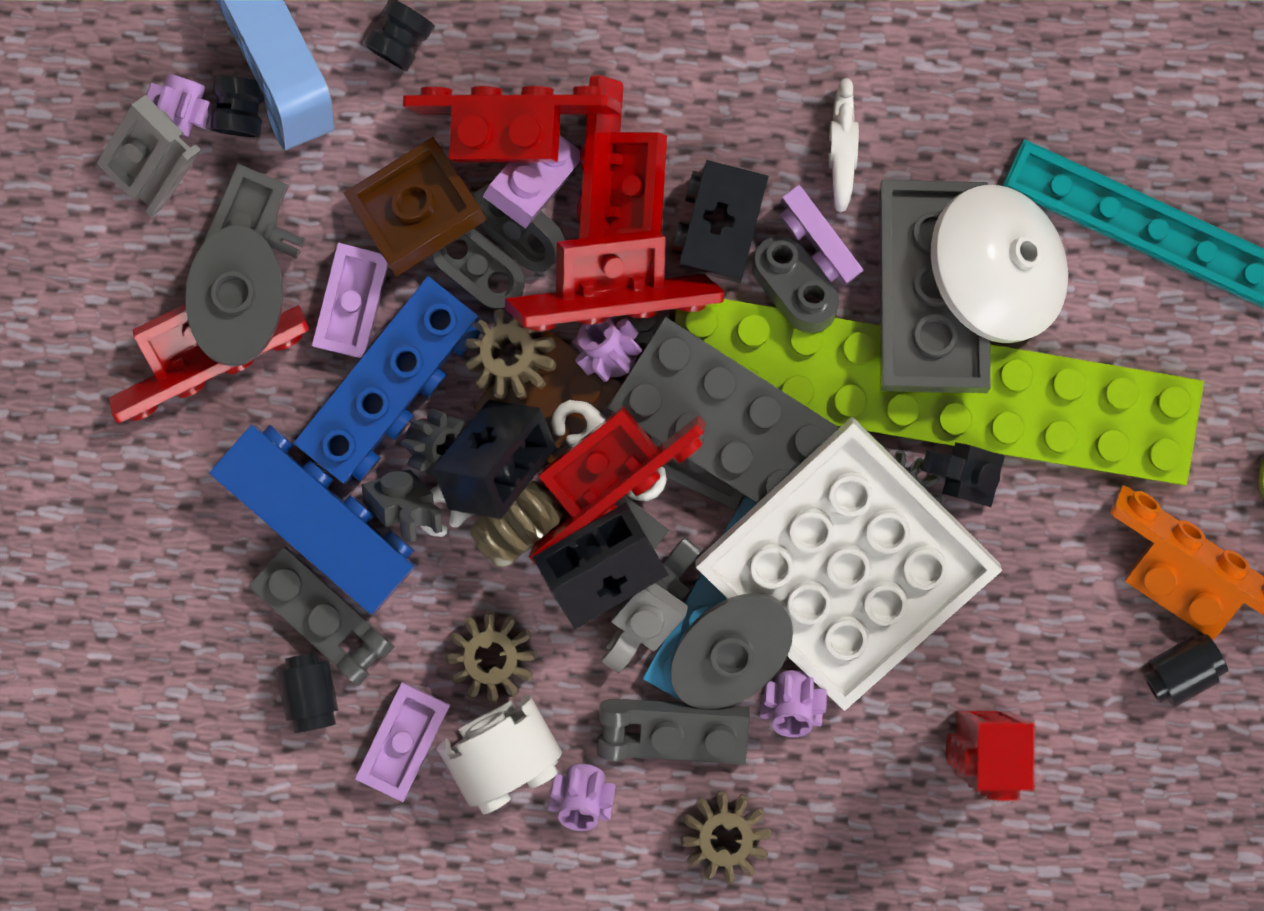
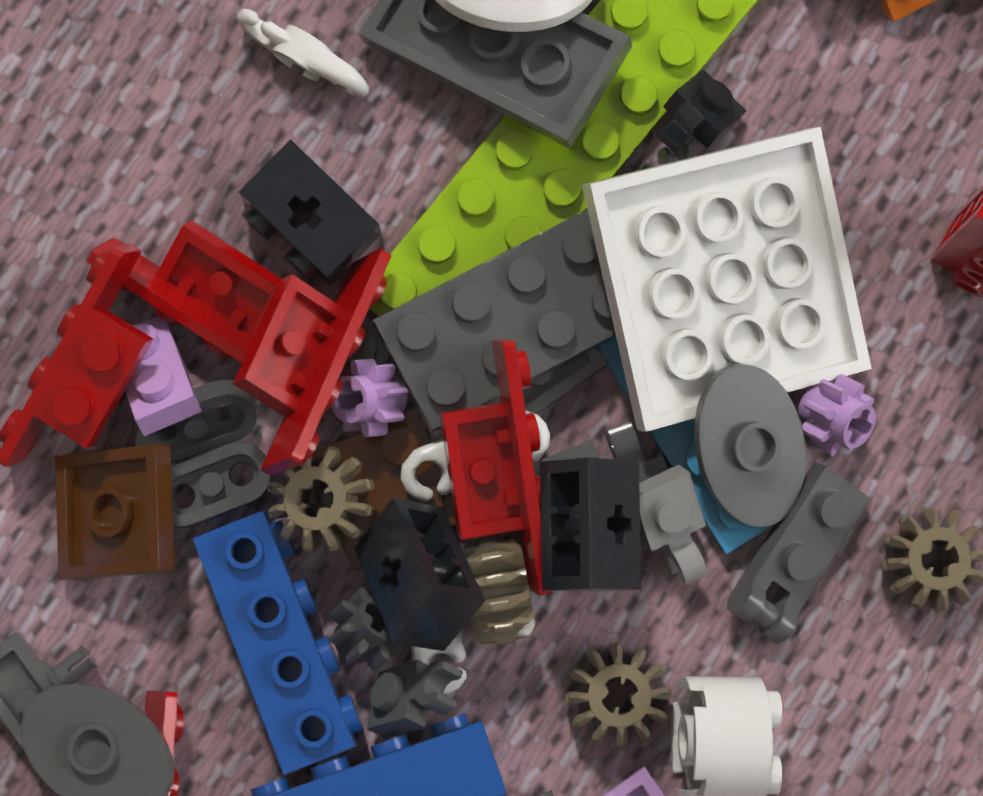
camera: 60 degrees left, 5 degrees down
(351, 301) = (173, 634): lavender plate -> none
(582, 797) = (814, 683): lavender gear -> none
(792, 281) = (410, 177): dark grey plate -> none
(805, 219) = (356, 129): lavender plate -> none

